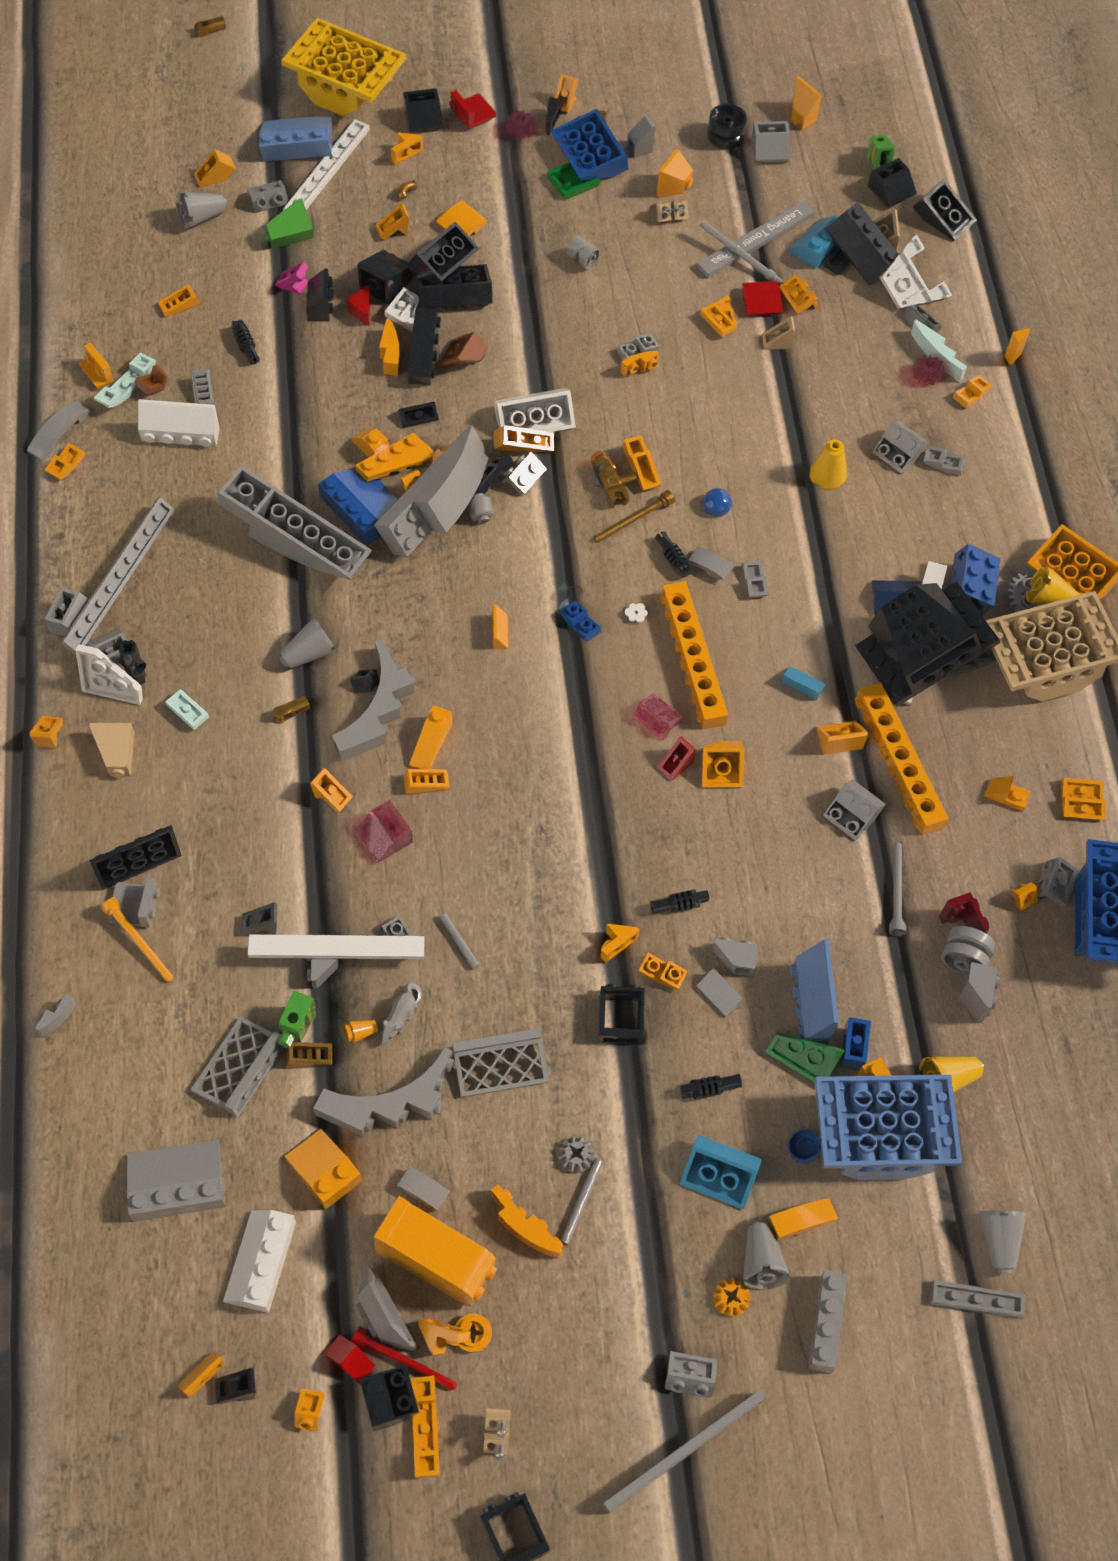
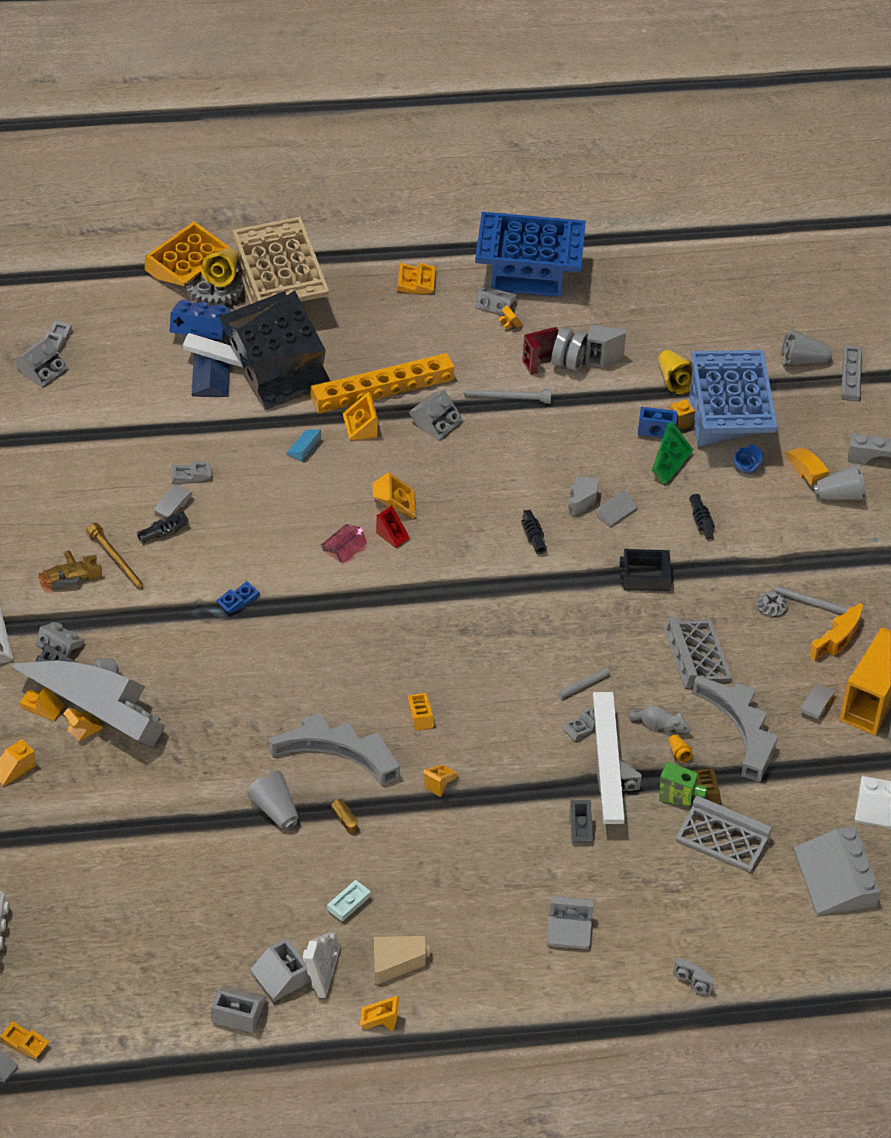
camera: 90 degrees left, 15 degrees down
(112, 908) = (579, 938): light orange piece -> none
(117, 575) = (195, 969): light grey plate -> none
(131, 661) = (308, 928): black piece -> none
(136, 857) = (524, 917): black slope -> none
(290, 527) = (136, 813): light grey slope -> none
(324, 1168) = (811, 767): light orange slope -> none
(357, 502) = (94, 768): blue slope -> none
(365, 680) = (310, 759): black slope -> none
(384, 831) = (481, 733): clear pink slope -> none
(396, 457) = (38, 737): light orange wing -> none
(431, 738) = (374, 703): light orange slope -> none
(499, 628) = (247, 658): light orange slope -> none
(523, 440) = (20, 639): light orange slope -> none
(621, 938) = (578, 570): light orange slope -> none
(636, 612) = (228, 557): white plant -> none
(641, 462) = (50, 548): light orange slope -> none
(662, 972) = (600, 546): light orange slope -> none
(717, 502) = (99, 495): blue hair -> none
(717, 713) = (277, 514): light orange brick -> none
(720, 1171) = (775, 510): dark azure slope -> none
(720, 1298) = (877, 516): light orange gear -> none
(815, 994) = (620, 437): medium blue slope -> none
(830, 466) = (65, 409): yellow cone -> none
(1004, 792) = (412, 322): light orange slope -> none

